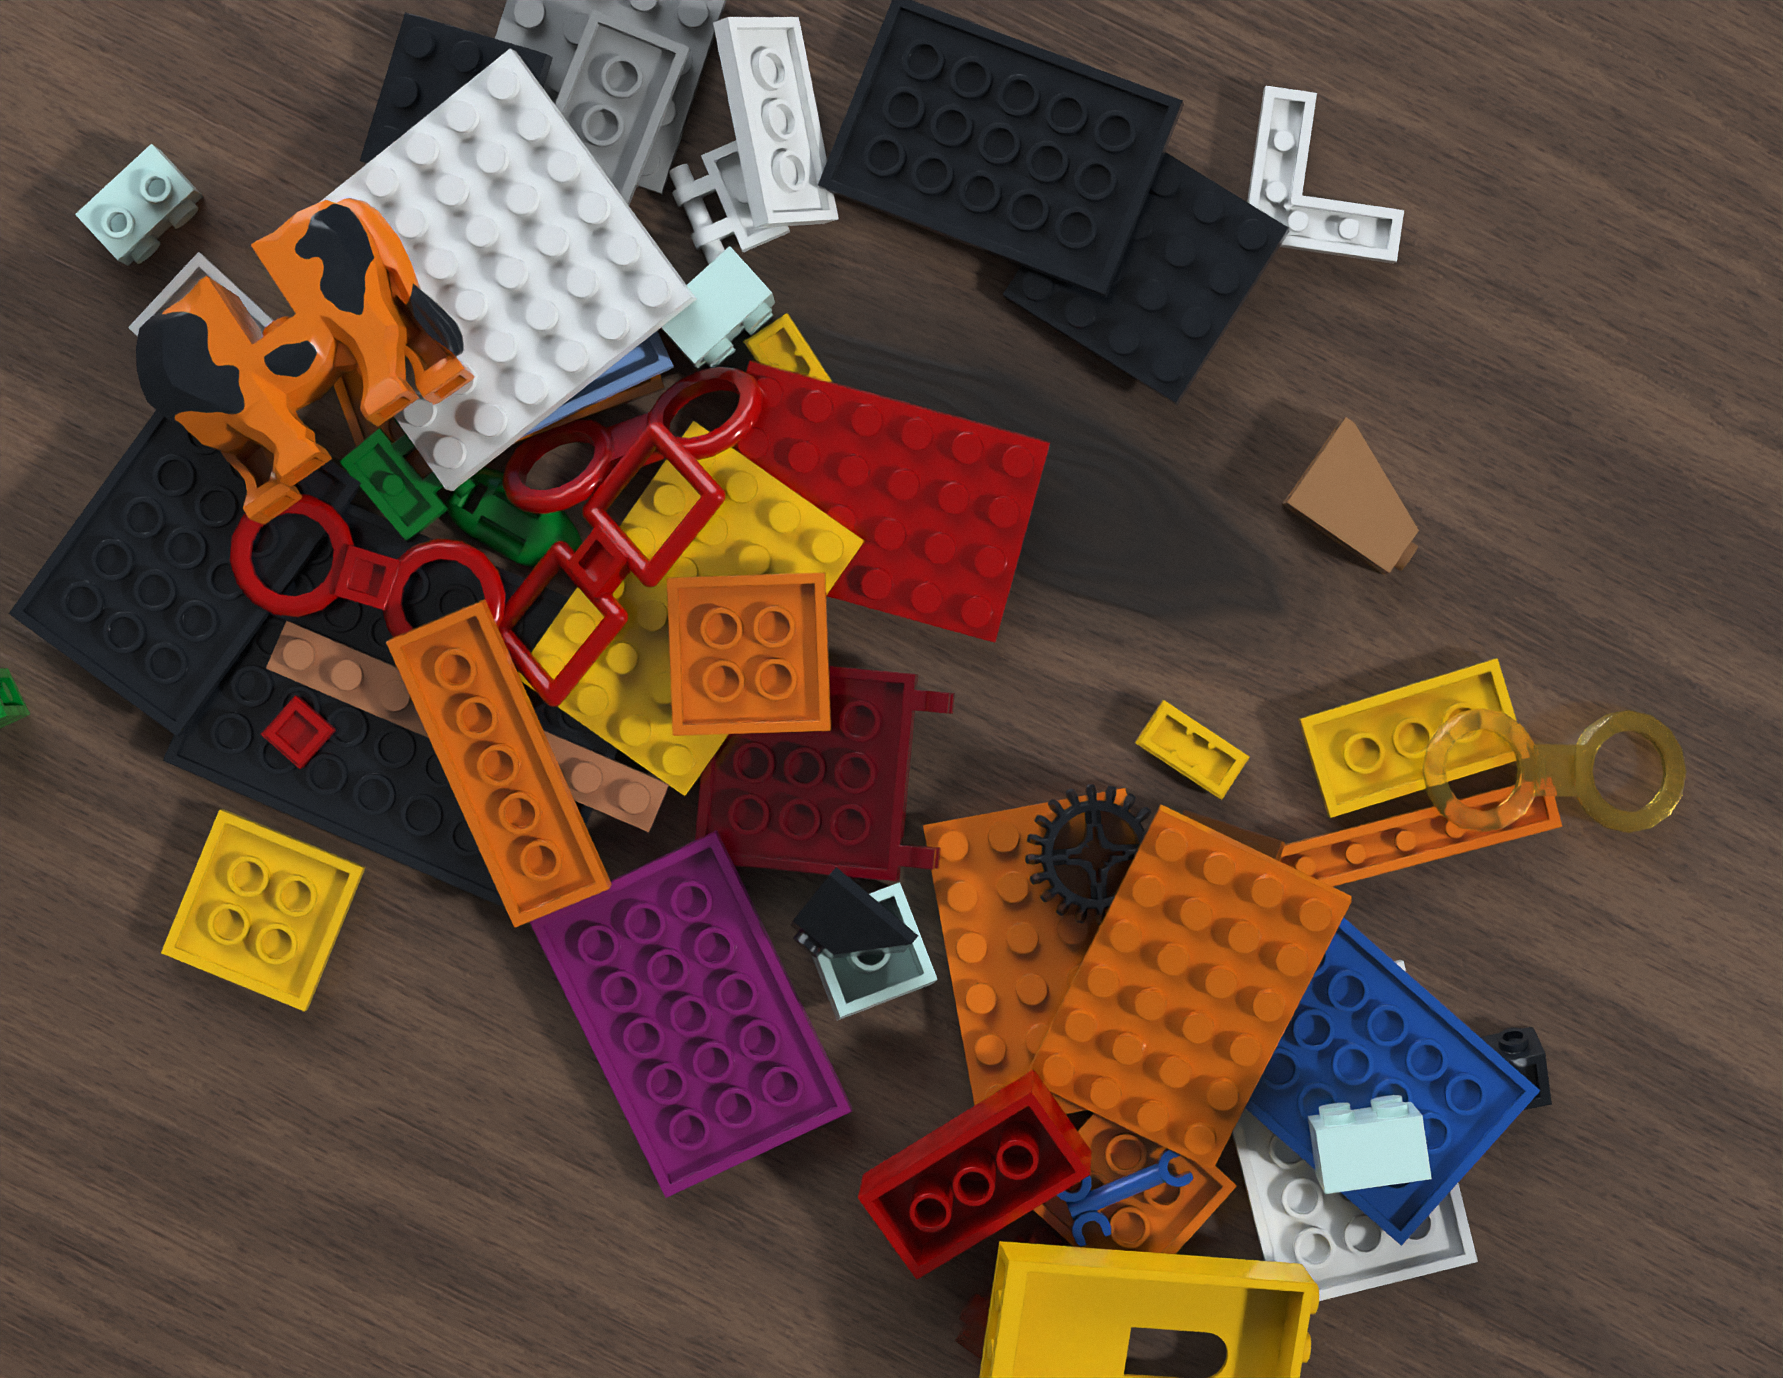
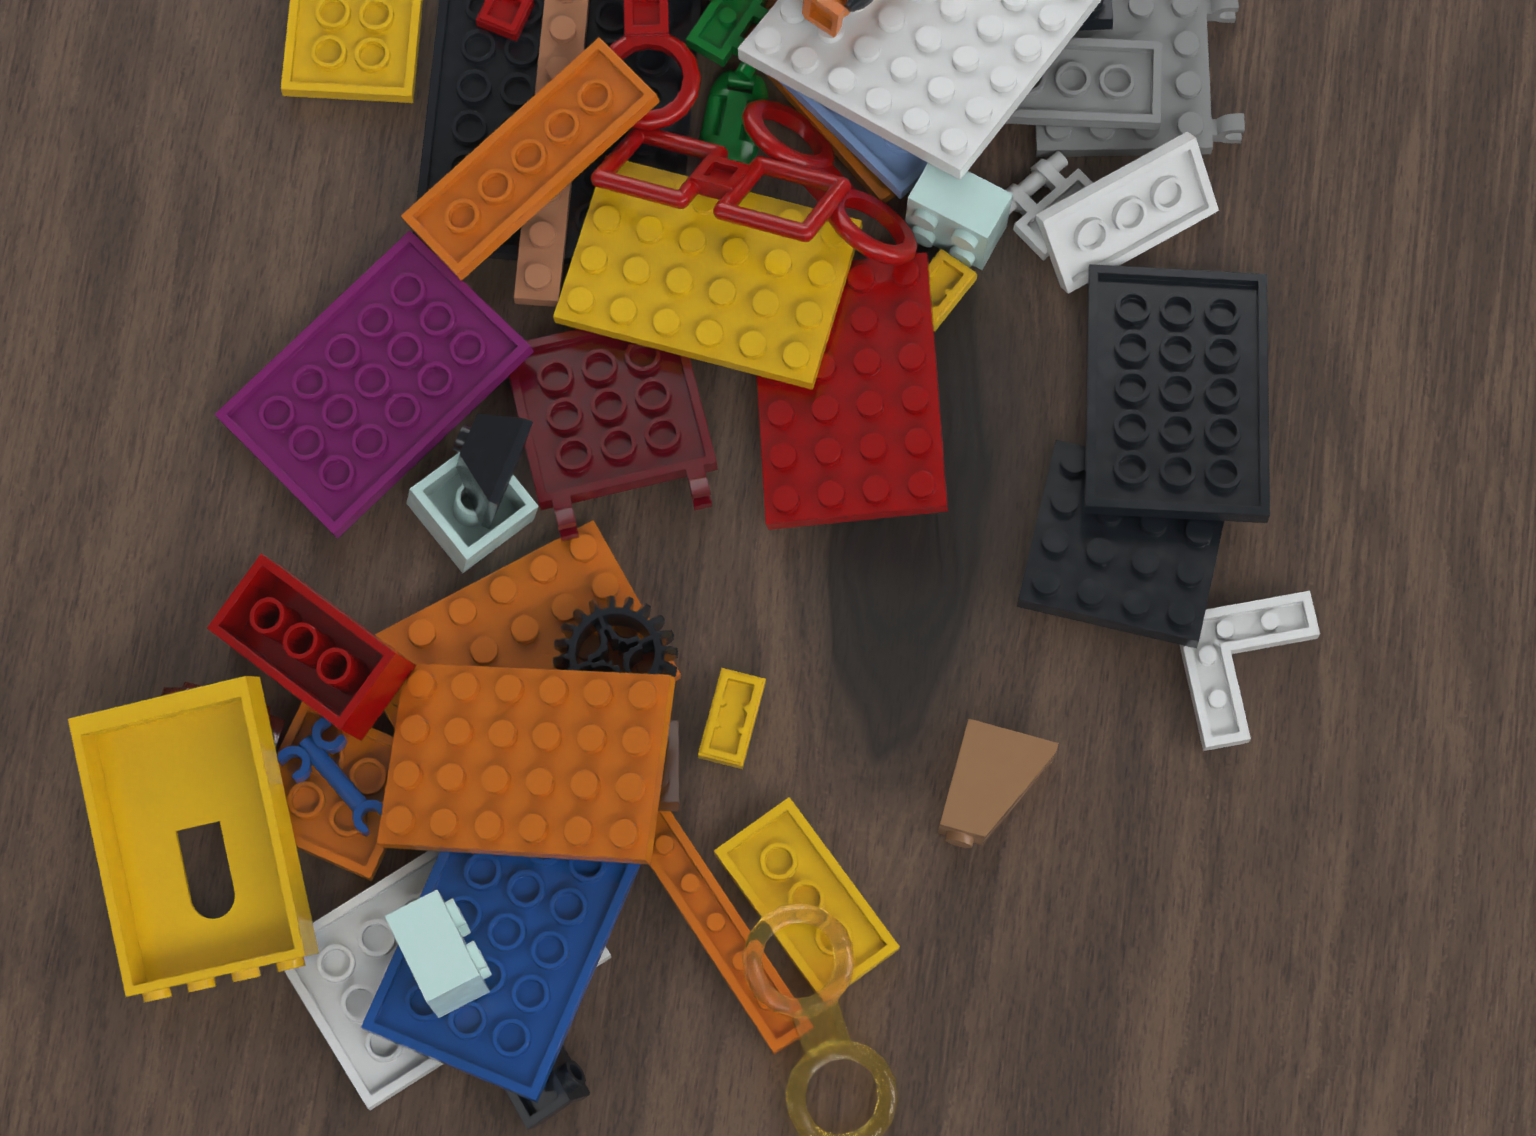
camera: 70 degrees right, 15 degrees down
(749, 654) = (687, 318): orange plate -> none

